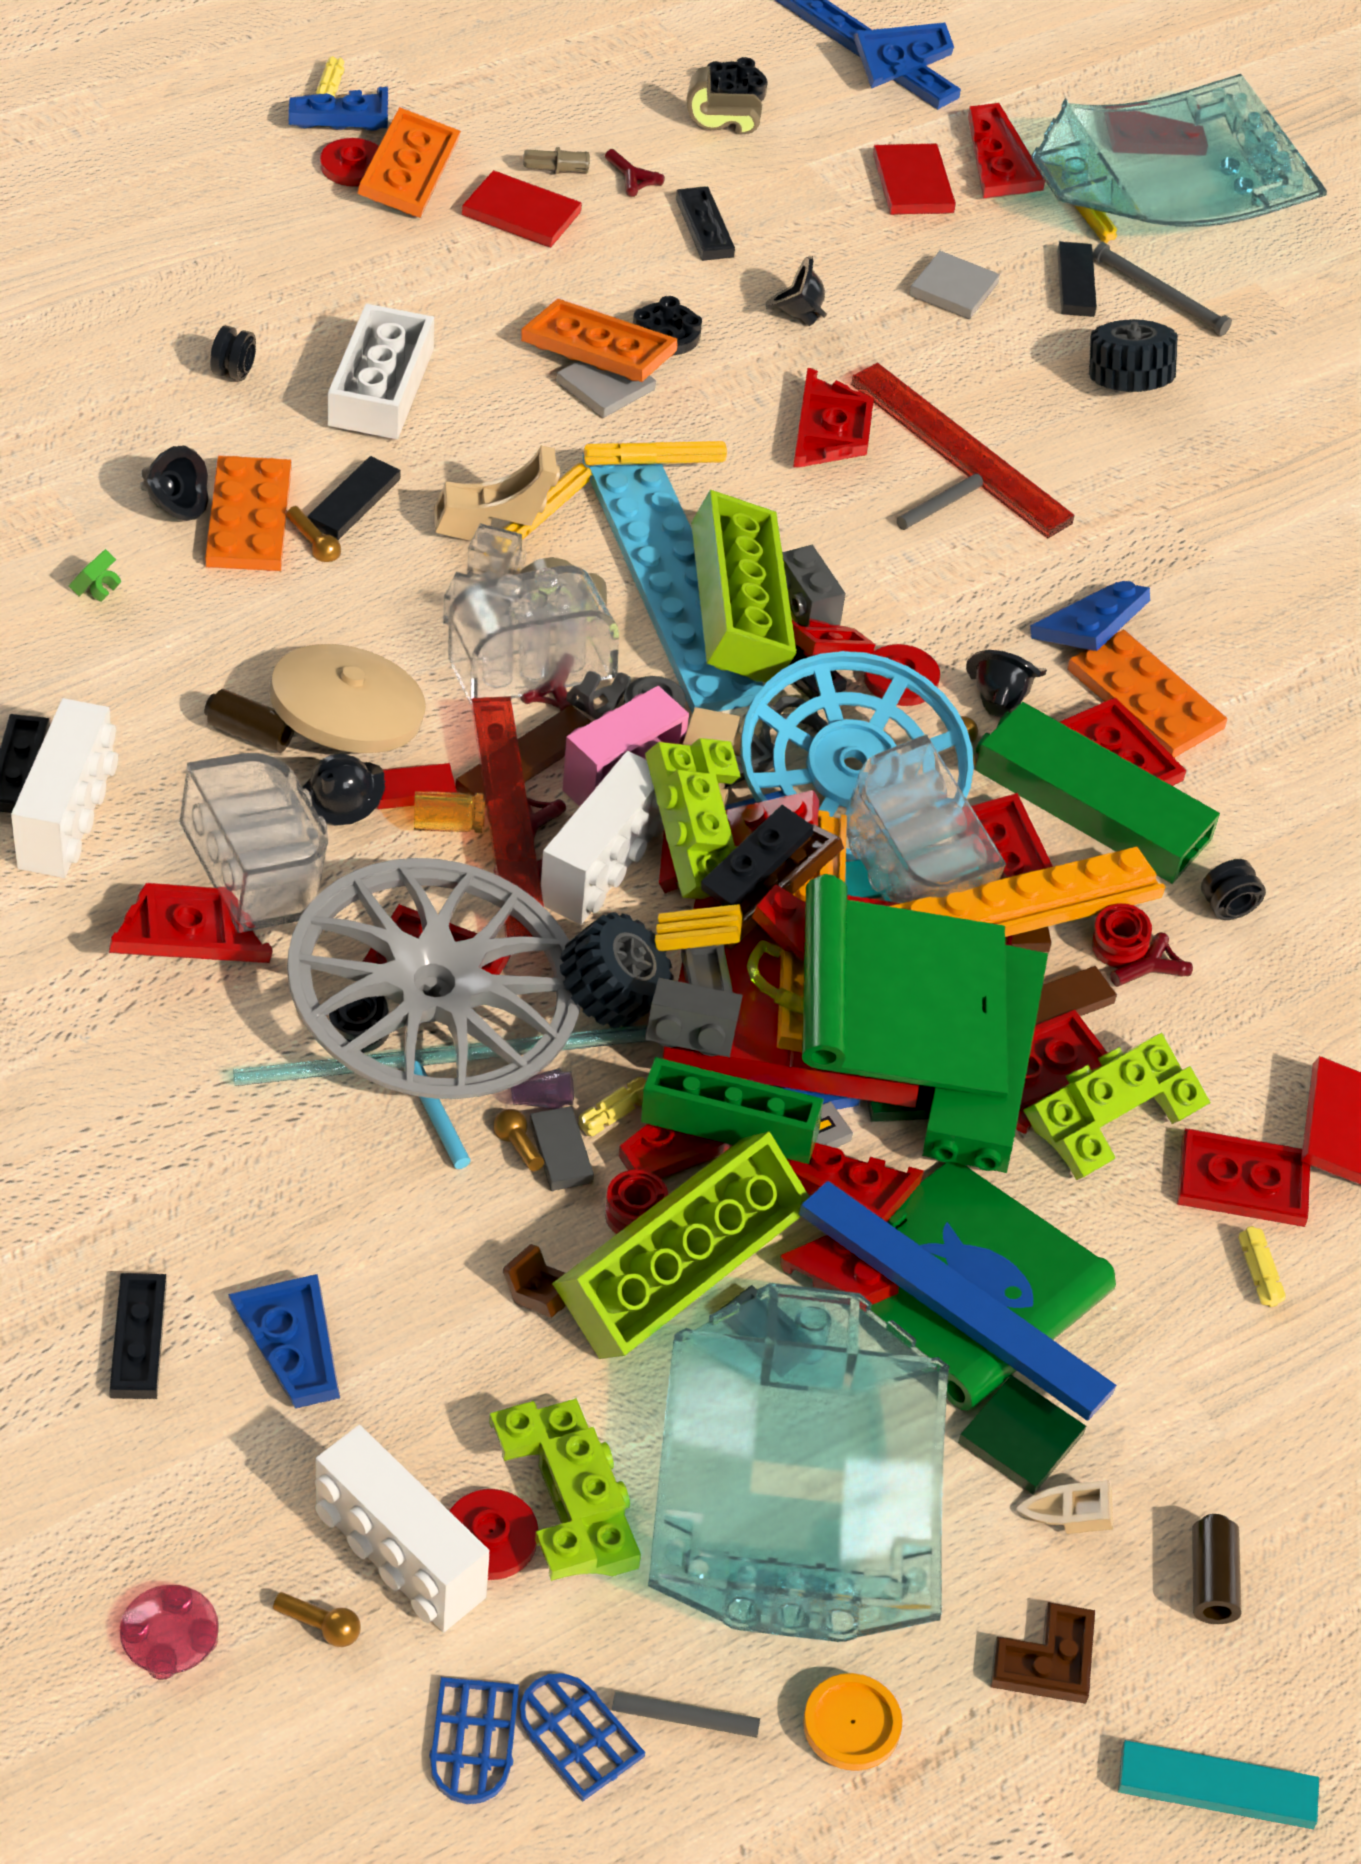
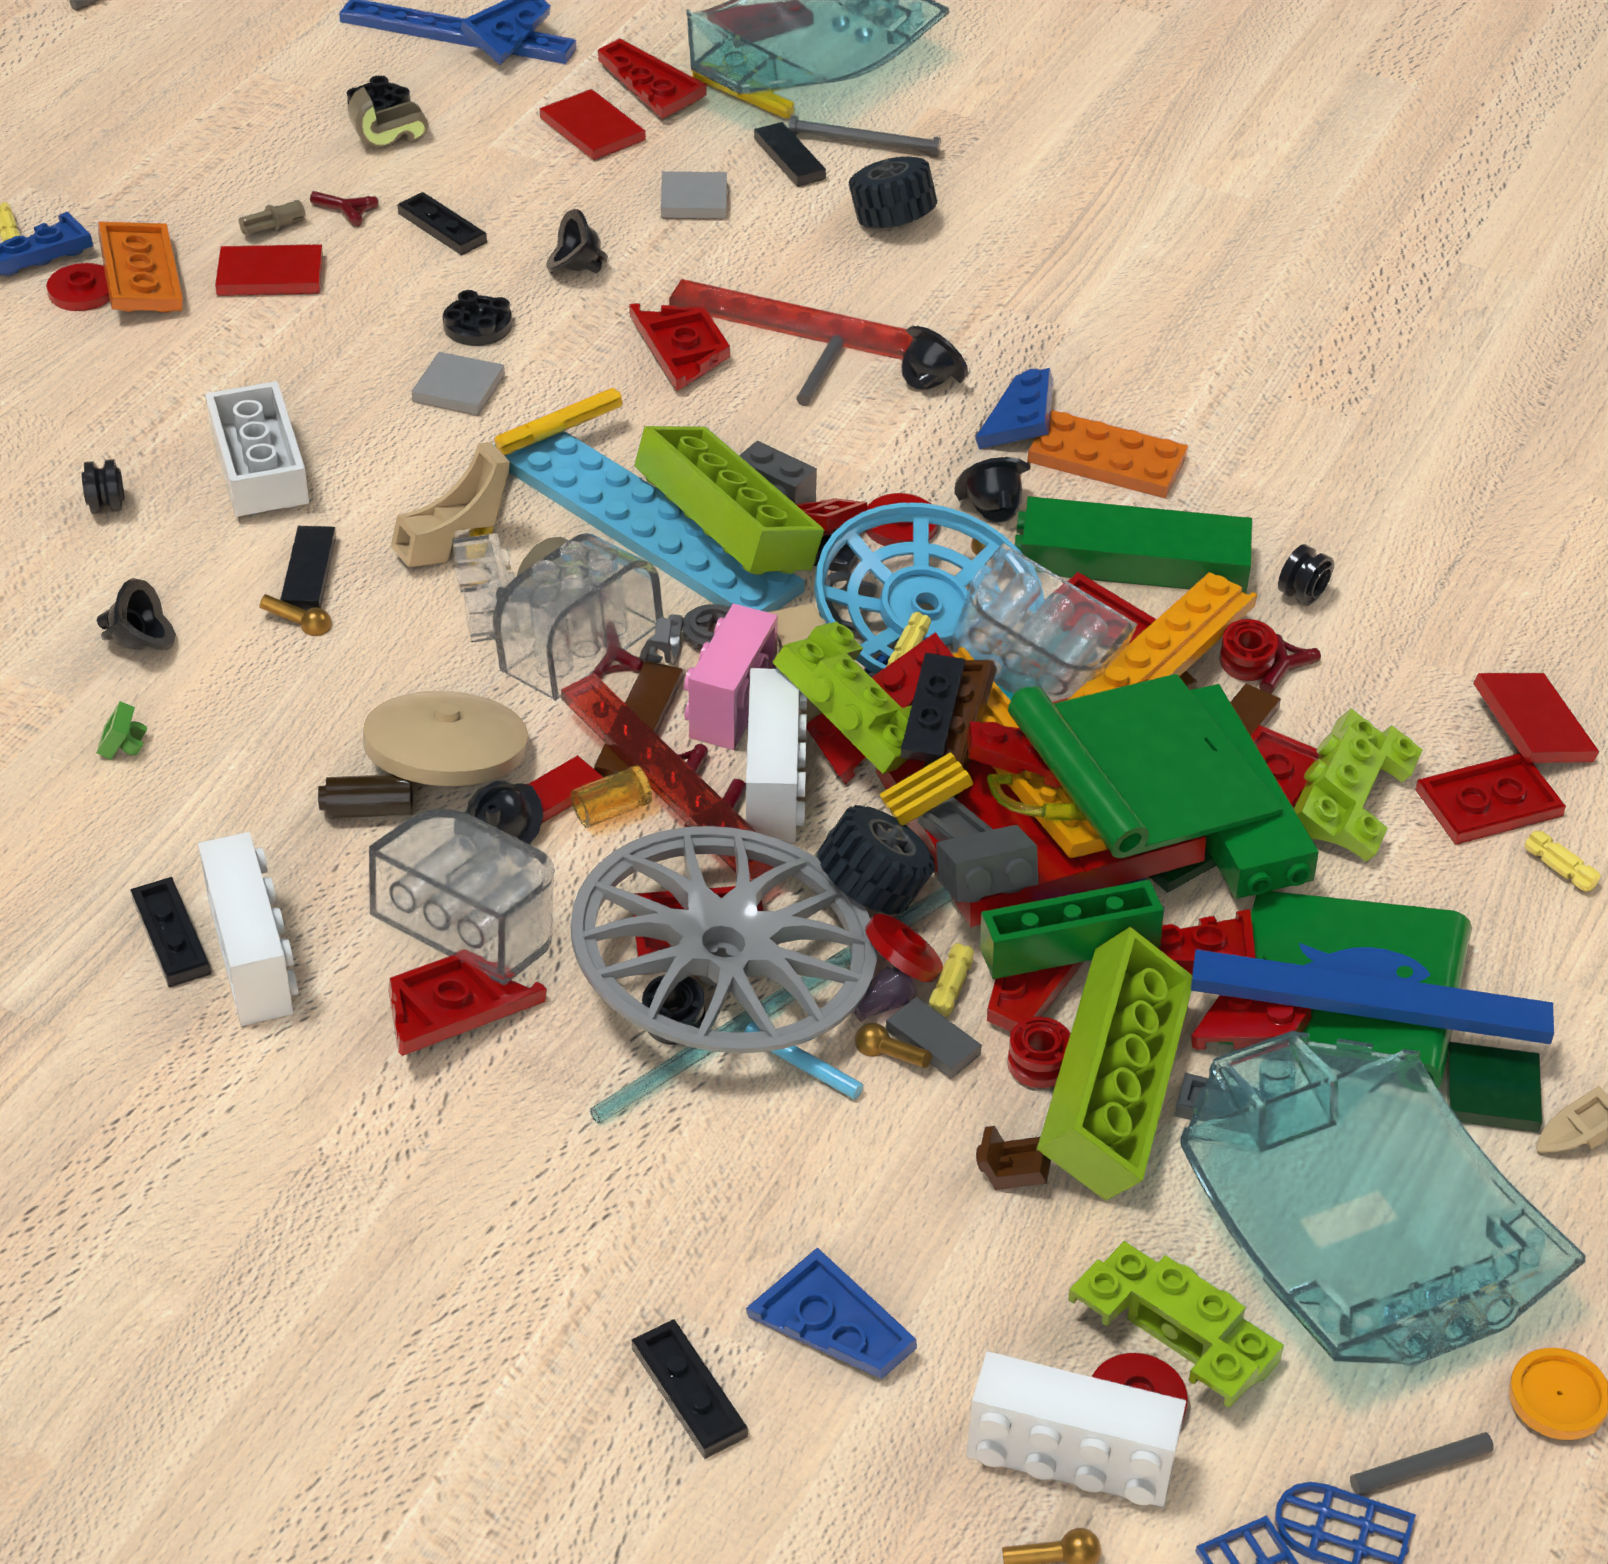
camera: 25 degrees left, 5 degrees down
(248, 513) = (220, 620): orange plate -> none
(587, 1058) = (904, 948): none -> red piece
(599, 340) = (431, 349): orange plate -> none
(818, 780) = (911, 636): none -> light yellow axle
(1042, 533) = (931, 360): none -> black helmet
(1121, 733) = (1109, 487): red wing -> none

